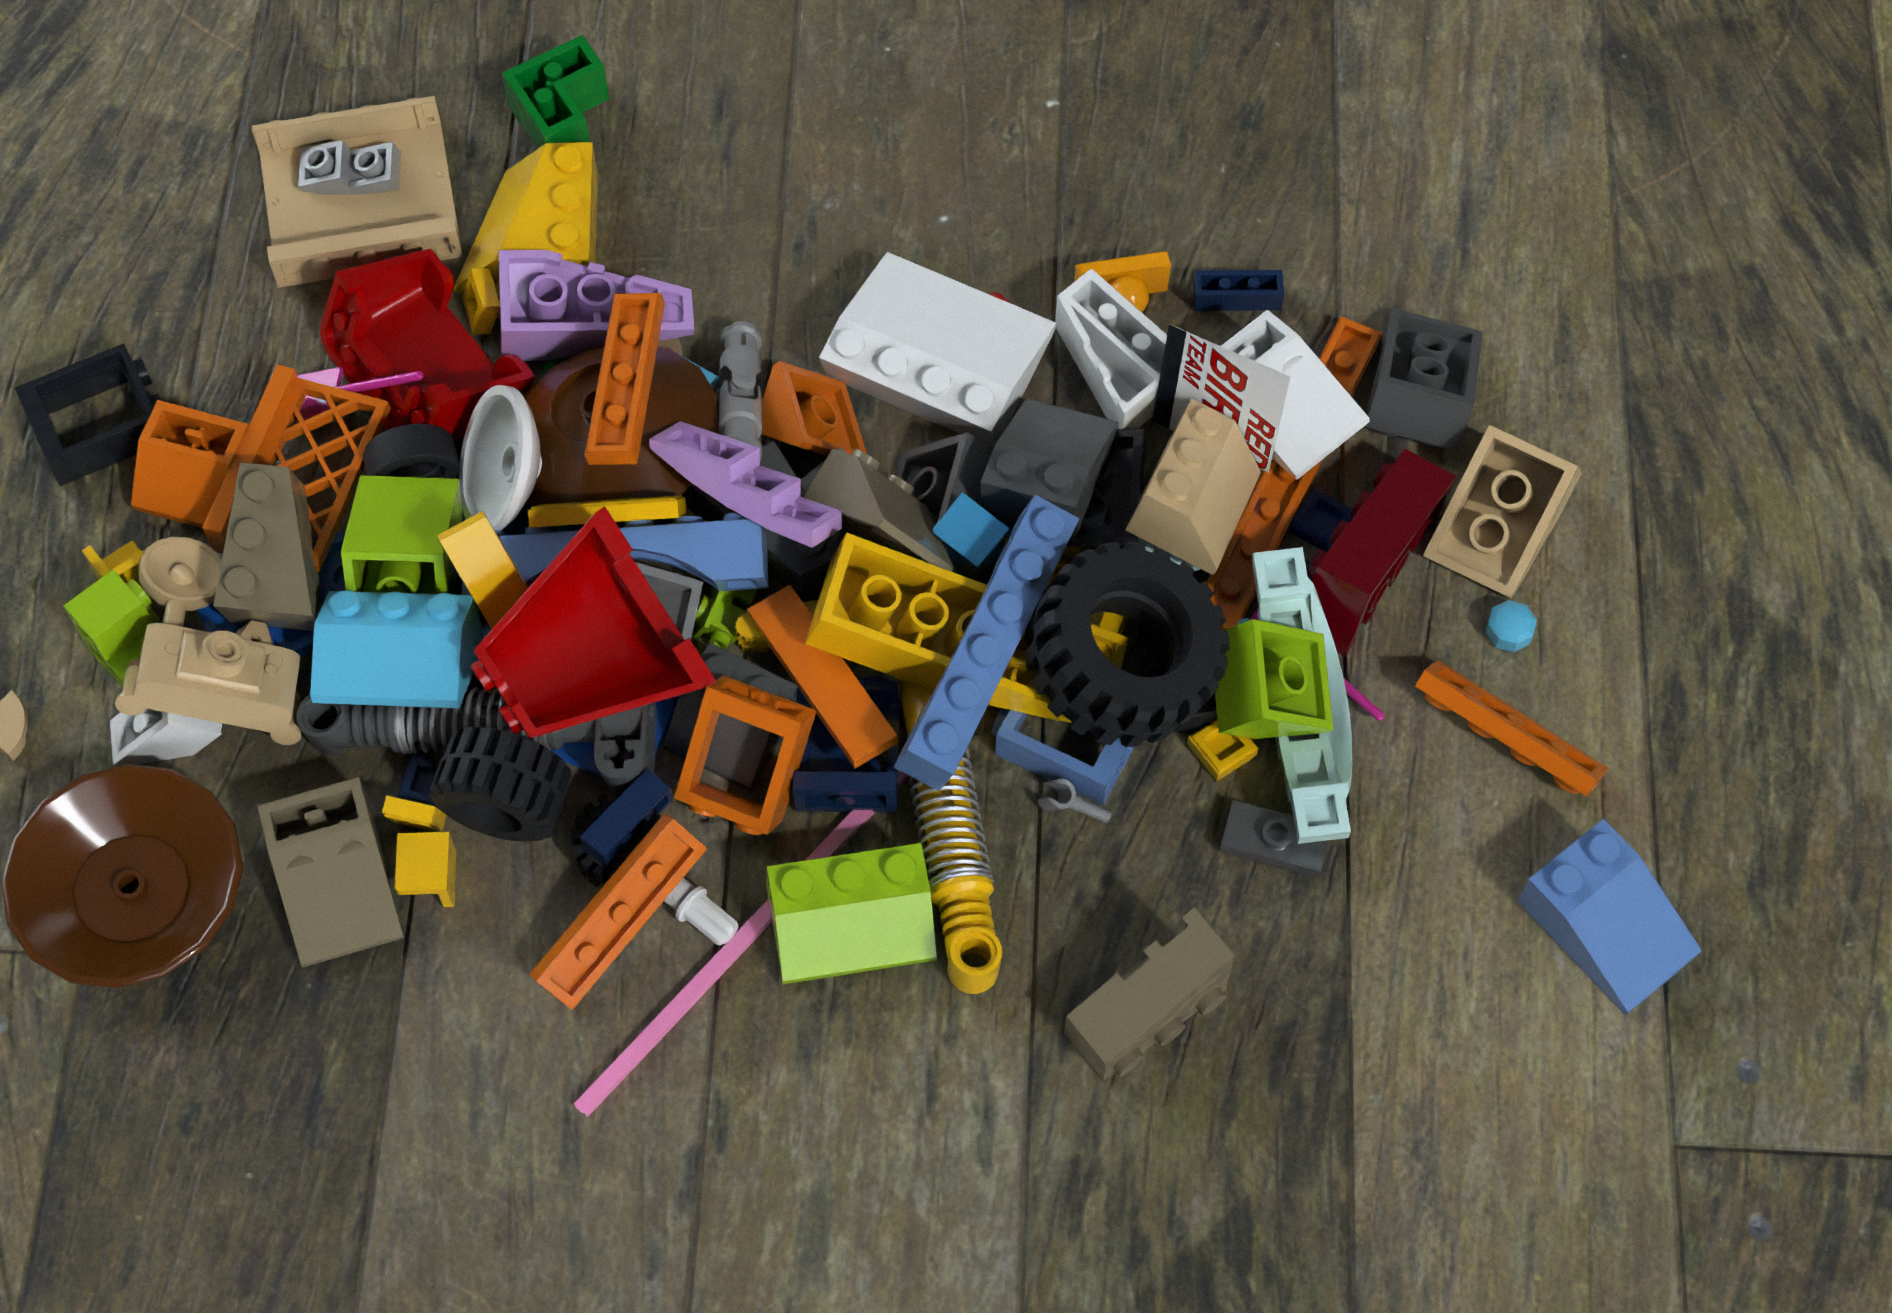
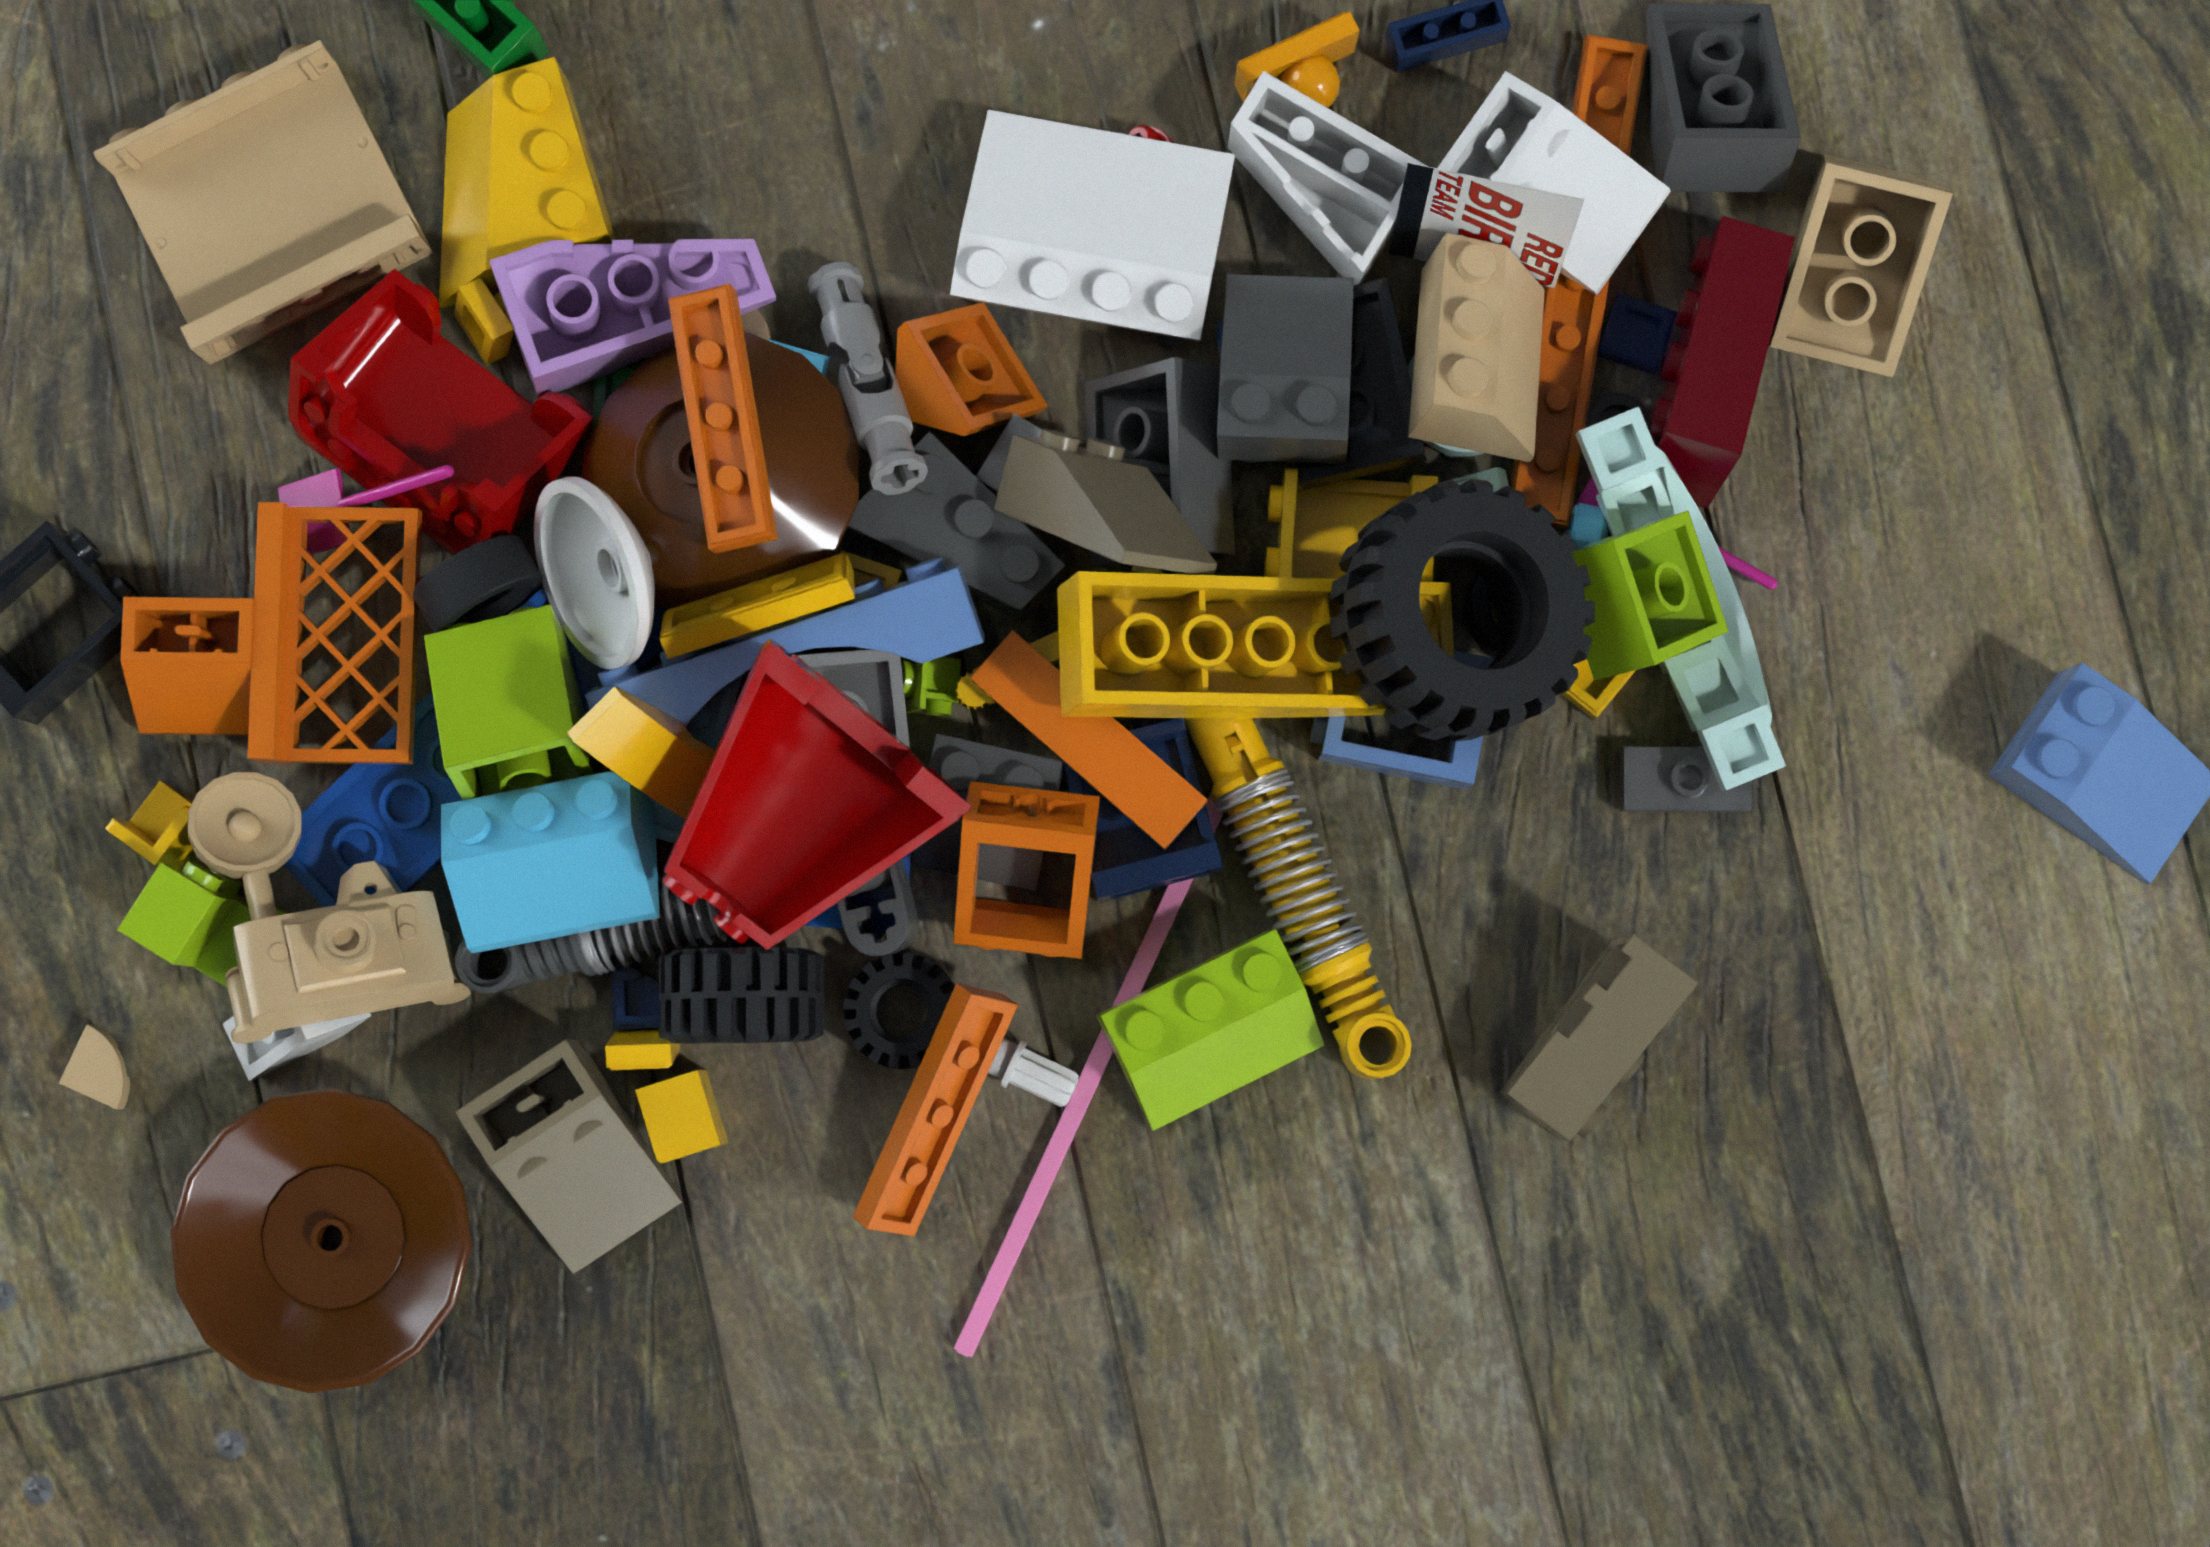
camera: 15 degrees left, 20 degrees up
(269, 552) = (346, 773): dark tan wedge -> none
(340, 171) = (242, 173): light grey slope -> none
(626, 818) = (908, 993): dark blue piece -> none
(733, 476) = (906, 521): lavender slope -> none
(972, 533) = (1223, 502): dark azure panel -> none
(987, 644) = (1307, 561): medium blue arch -> none
(1068, 799) = (1425, 801): light grey hand -> none
(1511, 626) = (1901, 415): medium azure tile -> none
(1526, 738) = (1936, 557): orange plate -> none

